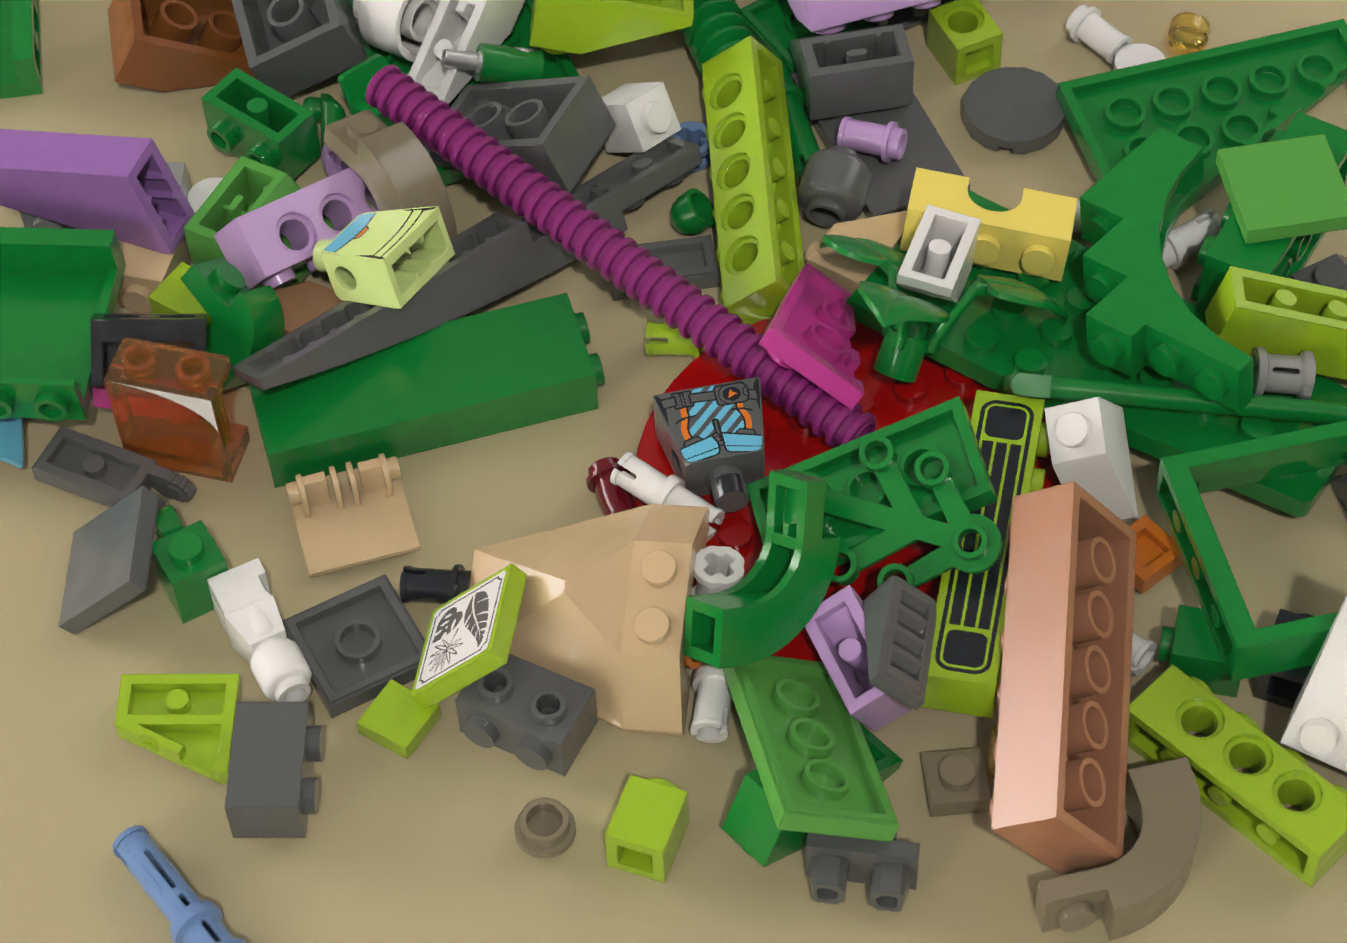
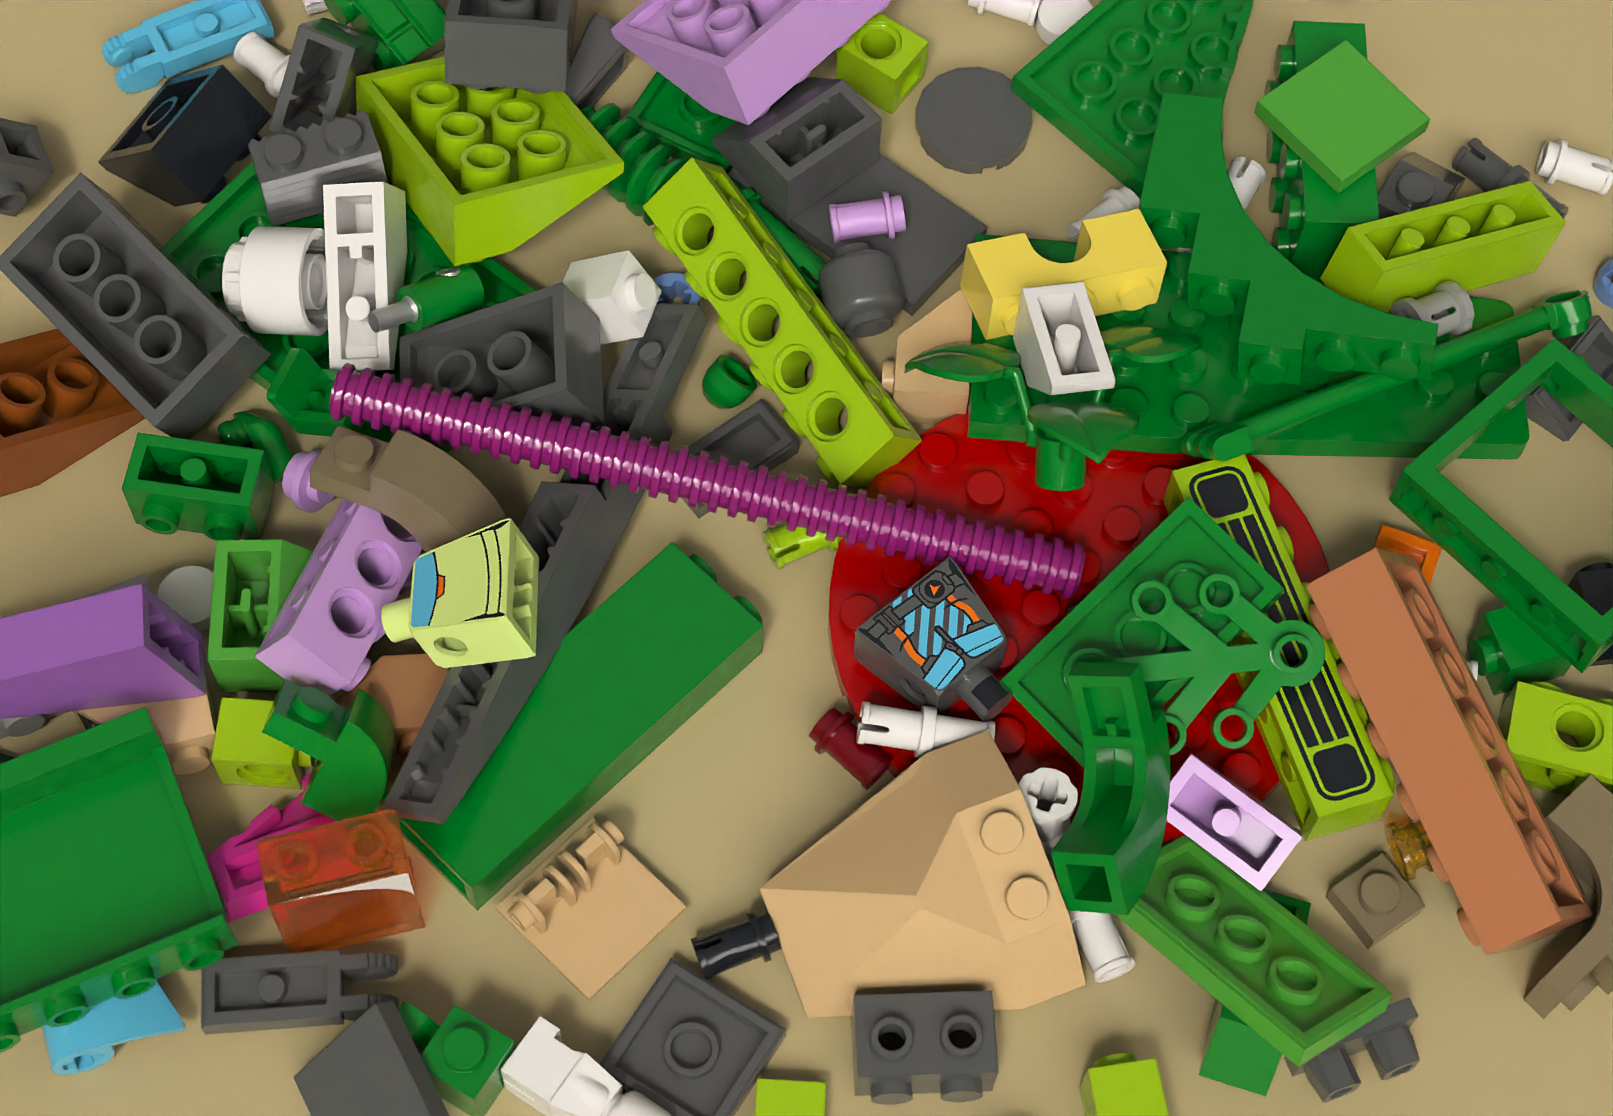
camera: 35 degrees left, 10 degrees up
(172, 329) = (286, 803): black panel -> none
(469, 636) = (830, 997): tile -> none
(814, 335) = (969, 482): dark pink wing -> none
(899, 632) = (1278, 792): dark grey slope -> none
(1092, 449) = (1313, 492): white slope -> none

